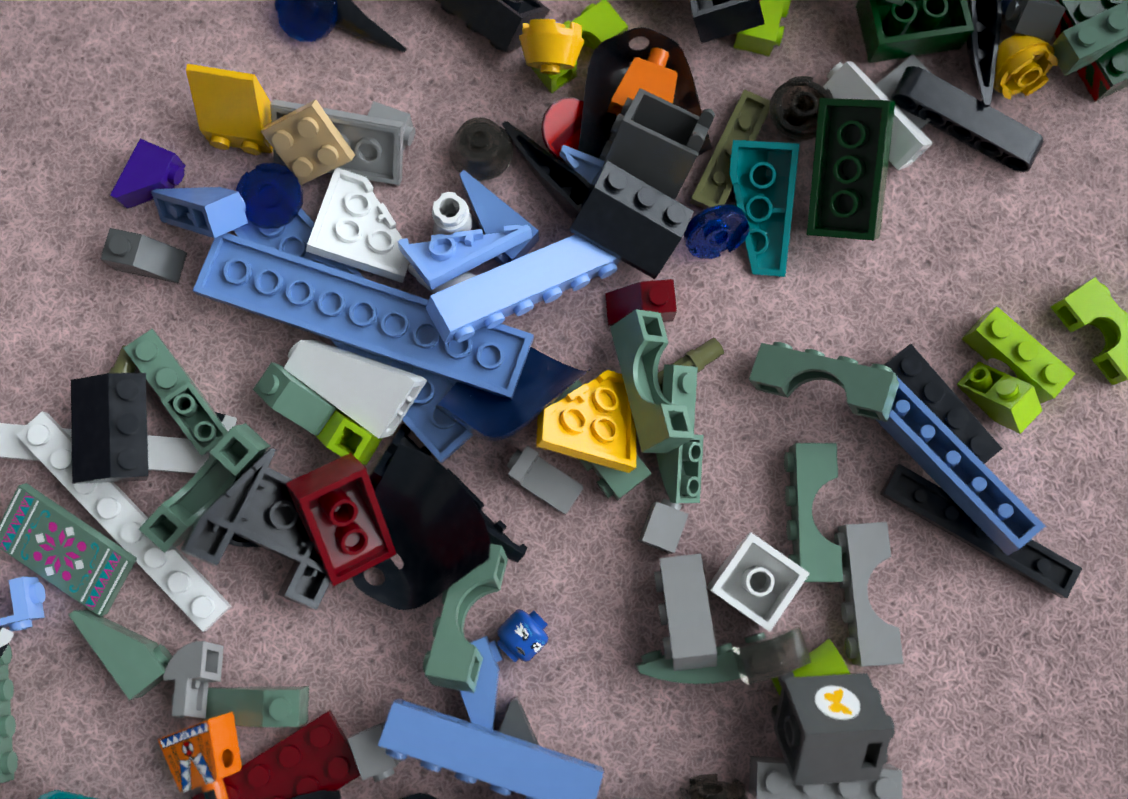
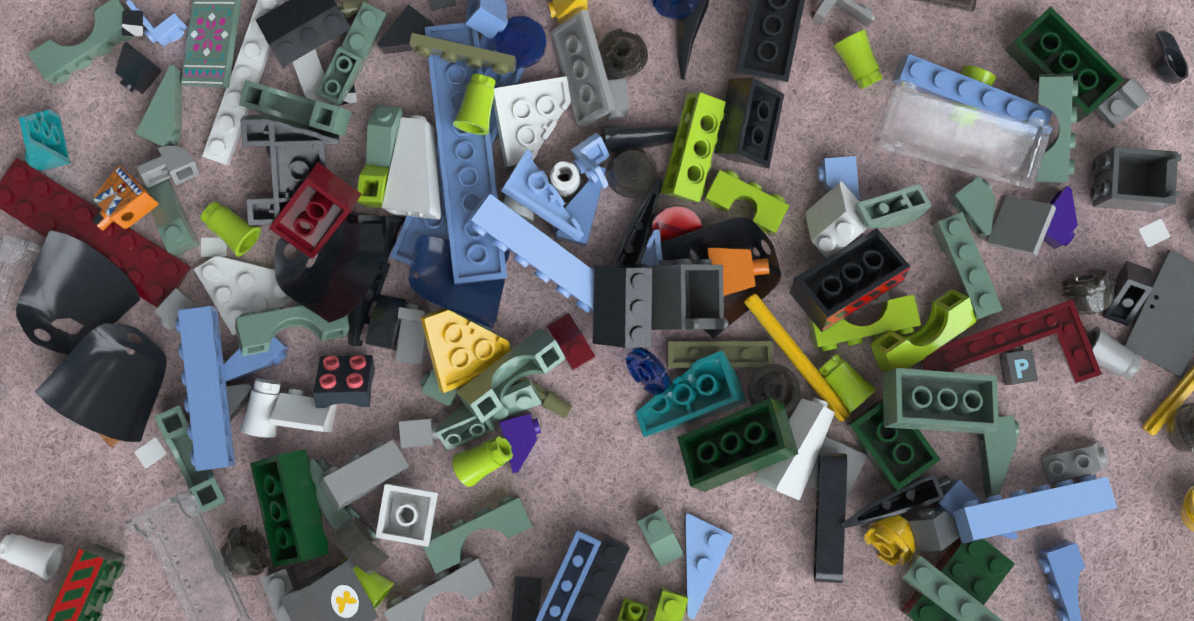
camera: 65 degrees right, 5 degrees up
(50, 661) = (135, 69): none -> black slope
(188, 319) = (399, 34): none -> black slope
(240, 264) = (452, 51): none -> olive plate
(307, 636) = (230, 228): none -> lime plant
(308, 142) = (570, 49): tan plate -> none
(318, 270) = (476, 106): none -> lime plant
(319, 671) = (213, 247): none -> white sticker
(345, 87) = (623, 54): none -> clear smoke cone
(388, 660) = (240, 288): none -> white plate
(436, 140) = (636, 136): none -> black piece
(440, 176) = (588, 156): none -> light blue bracket
(488, 68) = (683, 157): none -> lime brick
(515, 503) = (384, 323): none -> black slope
(522, 635) = (297, 371): blue head -> none
(548, 700) = (260, 408): none -> white plant
(551, 45) = (723, 185): yellow cone -> none
(562, 583) = (344, 380): none -> black brick
(576, 650) = (301, 412): none -> white slope
(687, 722) = (289, 508): none -> dark green brick
(726, 413) = (522, 436): none -> dark purple slope
(732, 464) = (481, 460): none -> lime plant
(770, 72) = (797, 357): none -> yellow axle
(782, 370) = (573, 526): sand green arch -> none
(827, 34) = (846, 382): none -> lime plant
(904, 309) = (660, 537): none -> sand green slope
(944, 271) = (704, 553): none -> light blue wing

